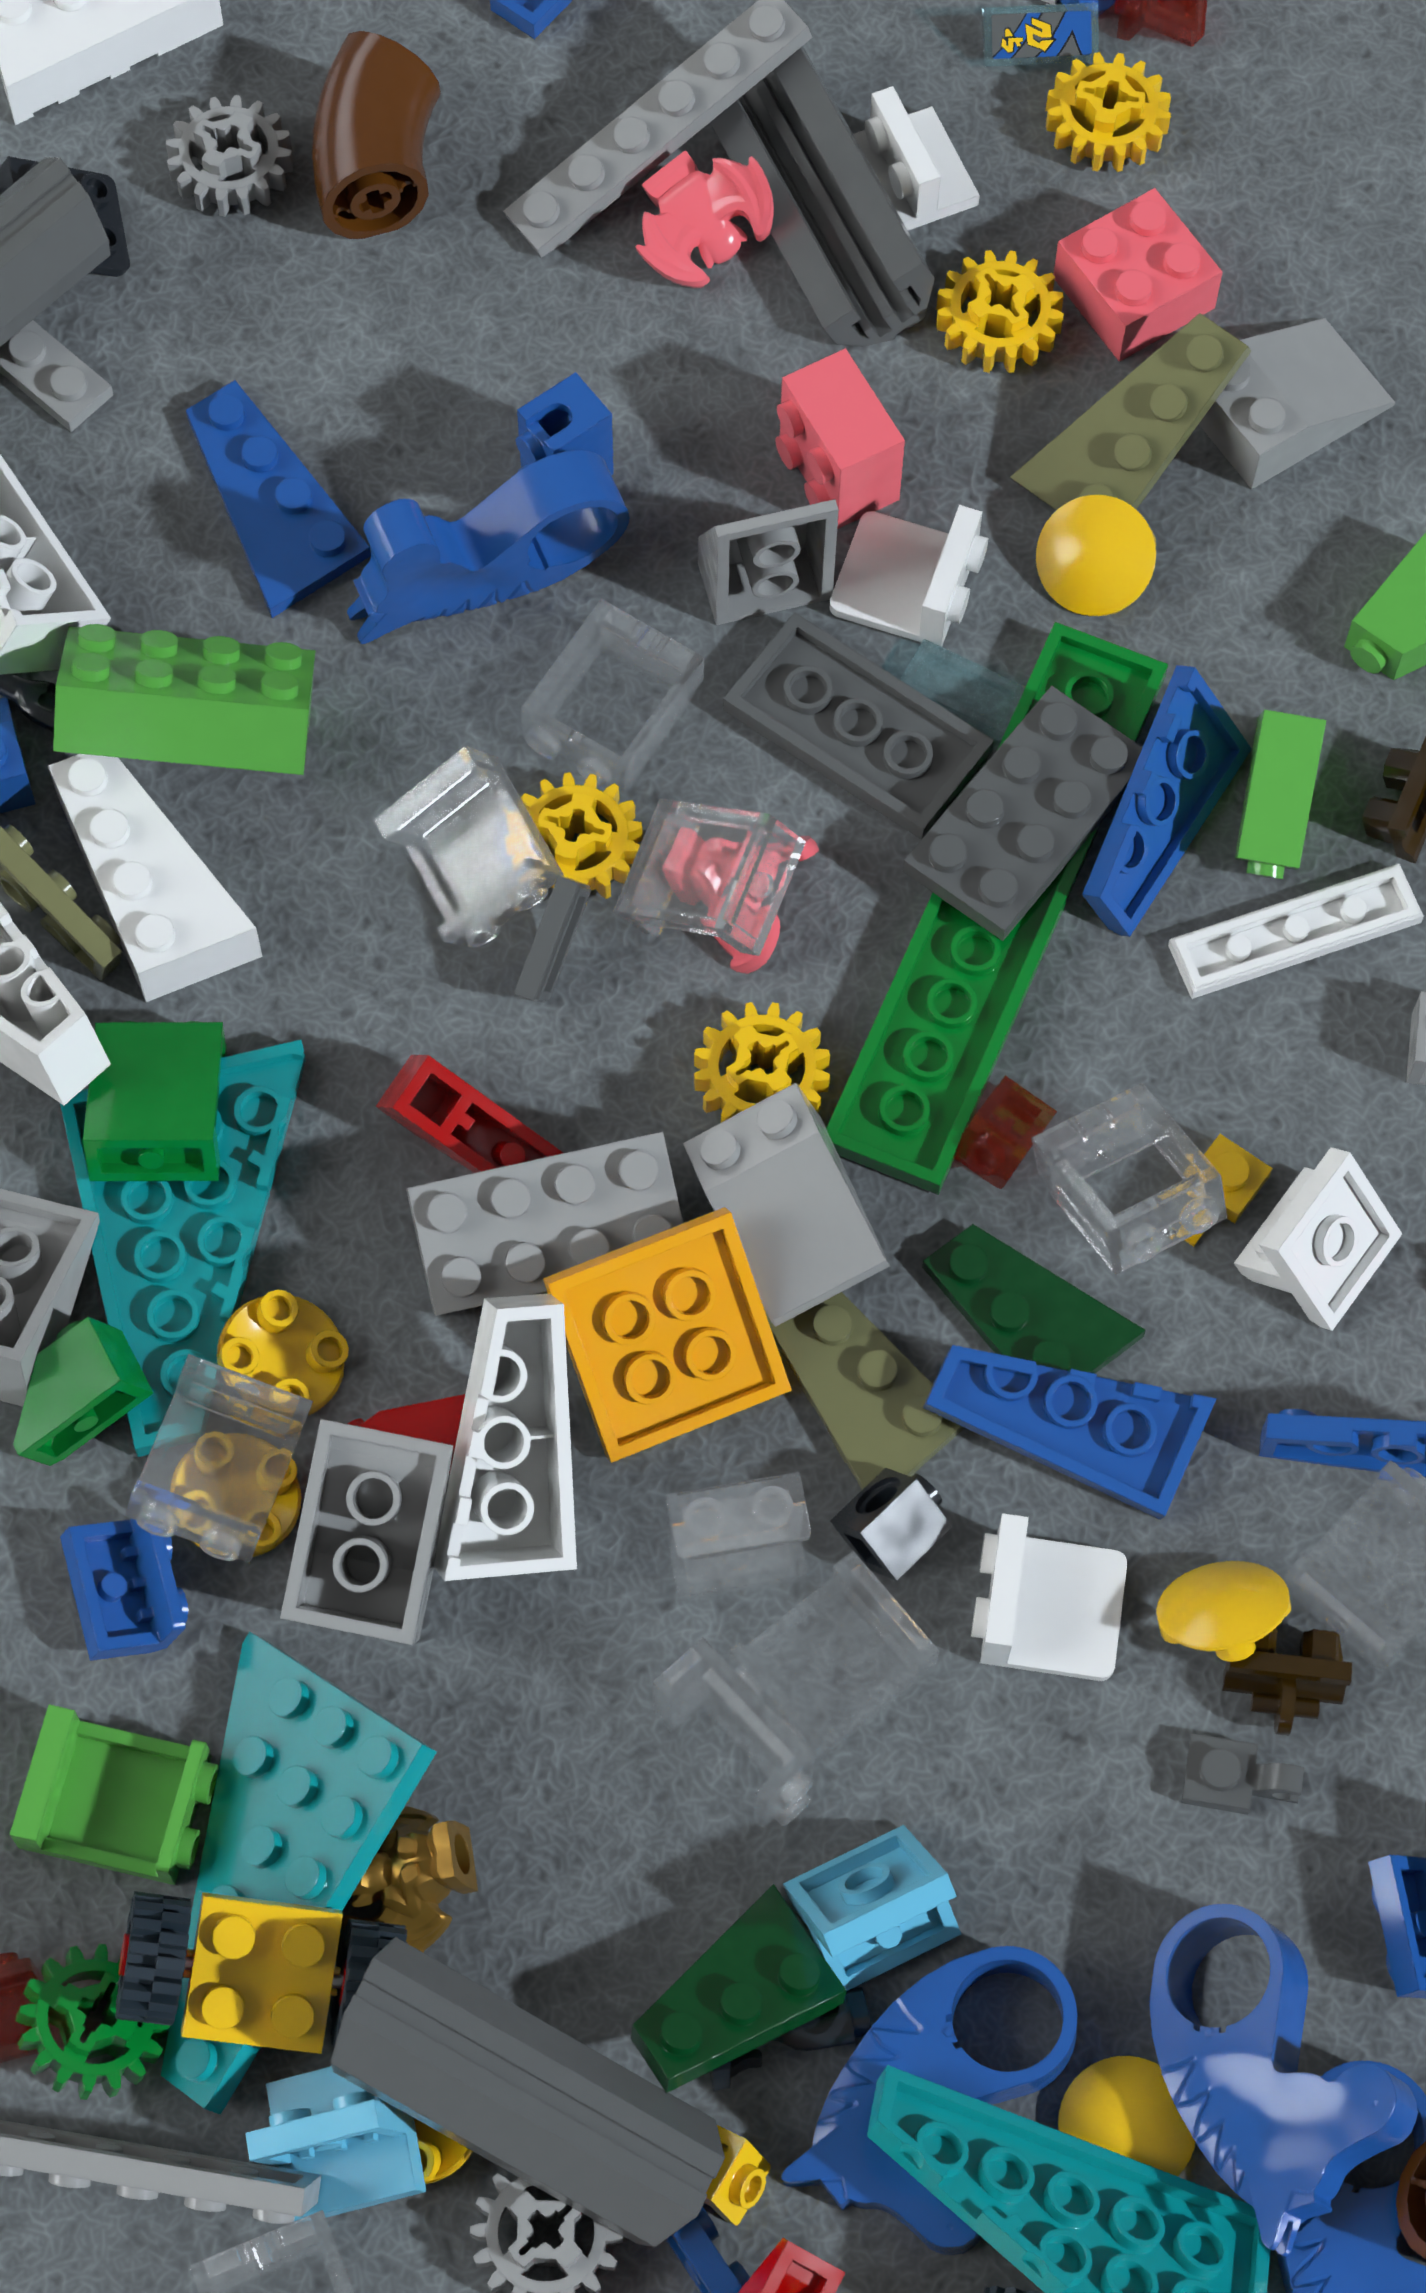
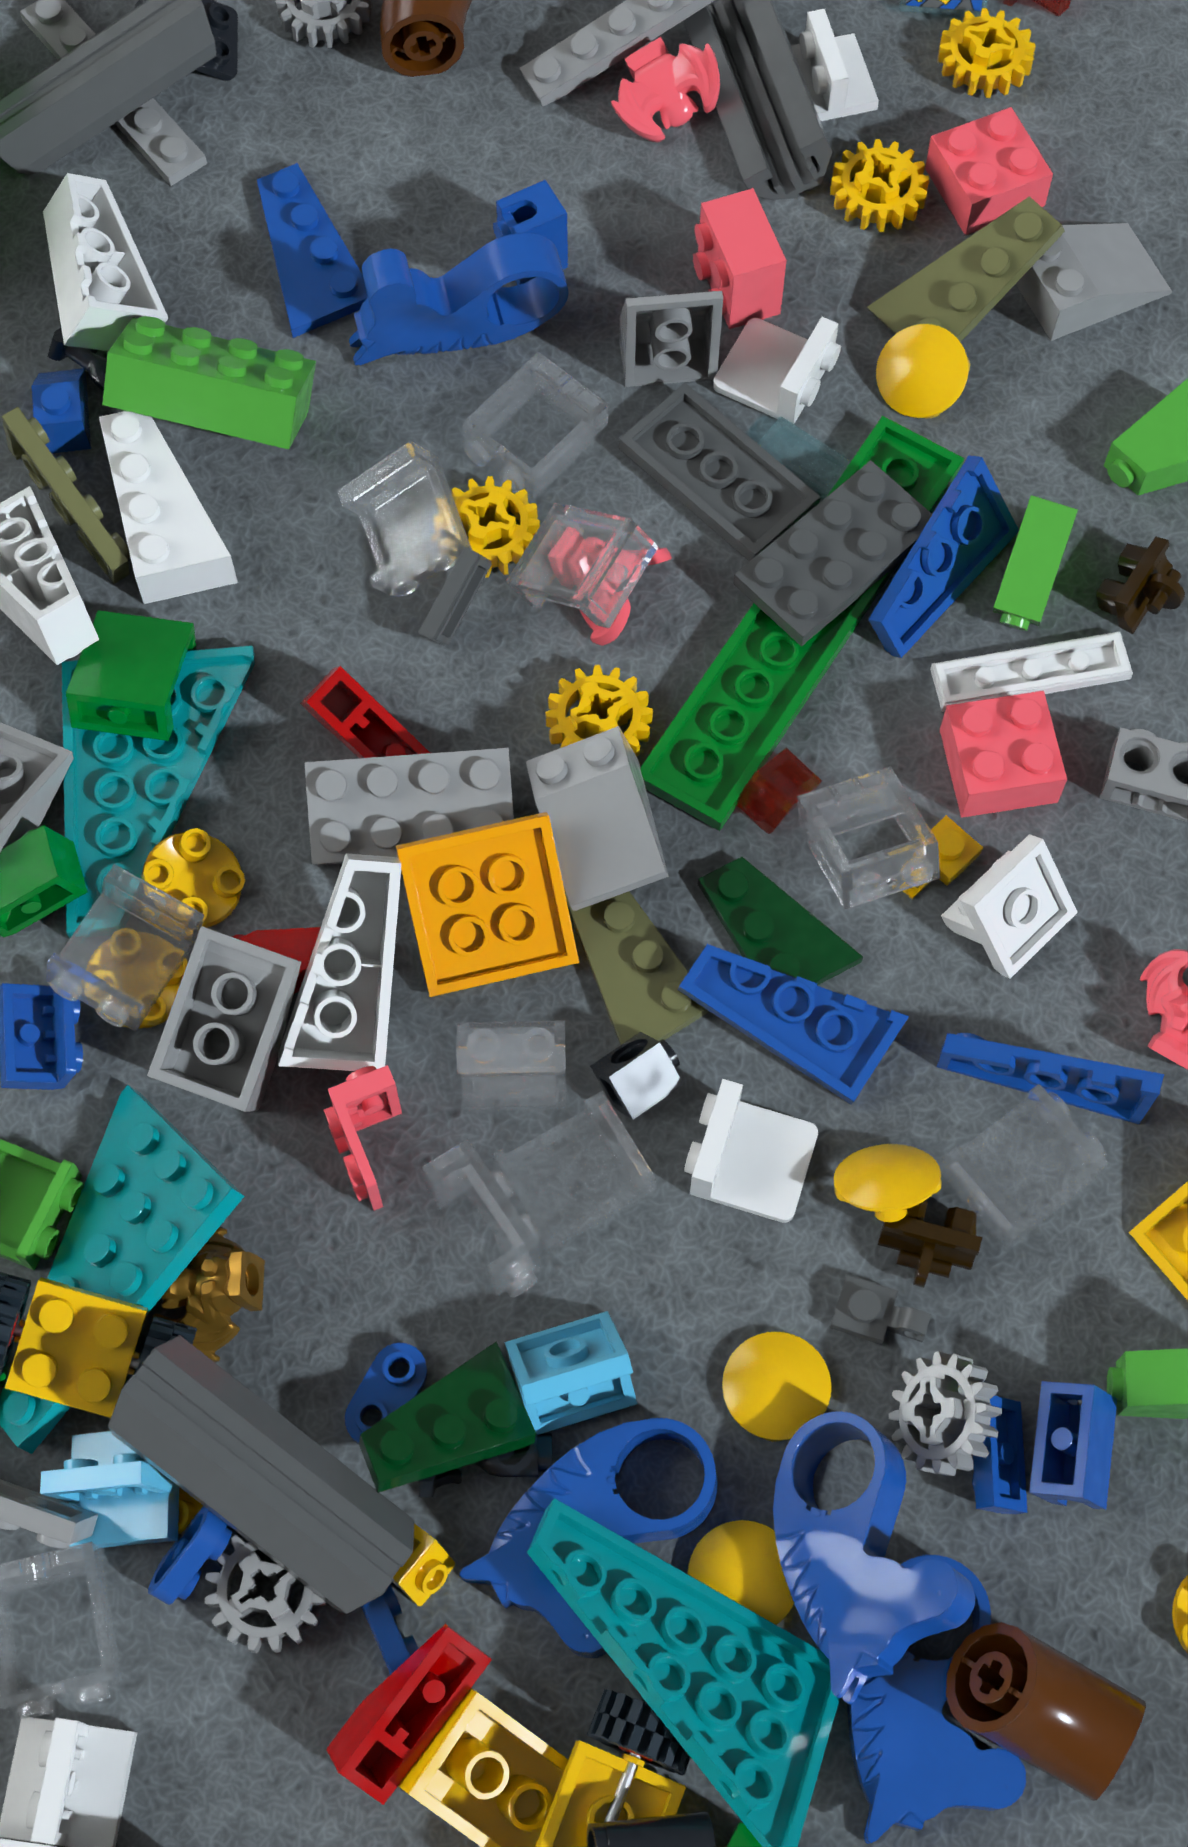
camera: 10 degrees right, 0 degrees up
(437, 2217) = (180, 1567): none -> blue plate
(558, 1607) = (356, 1104): none -> coral bracket
(644, 1967) = (382, 1390): none -> blue plate
(1127, 1884) = (775, 1385): none -> yellow dish
(1278, 1045) = (1002, 754): none -> coral brick
(1341, 1887) = (945, 1414): none -> light grey gear

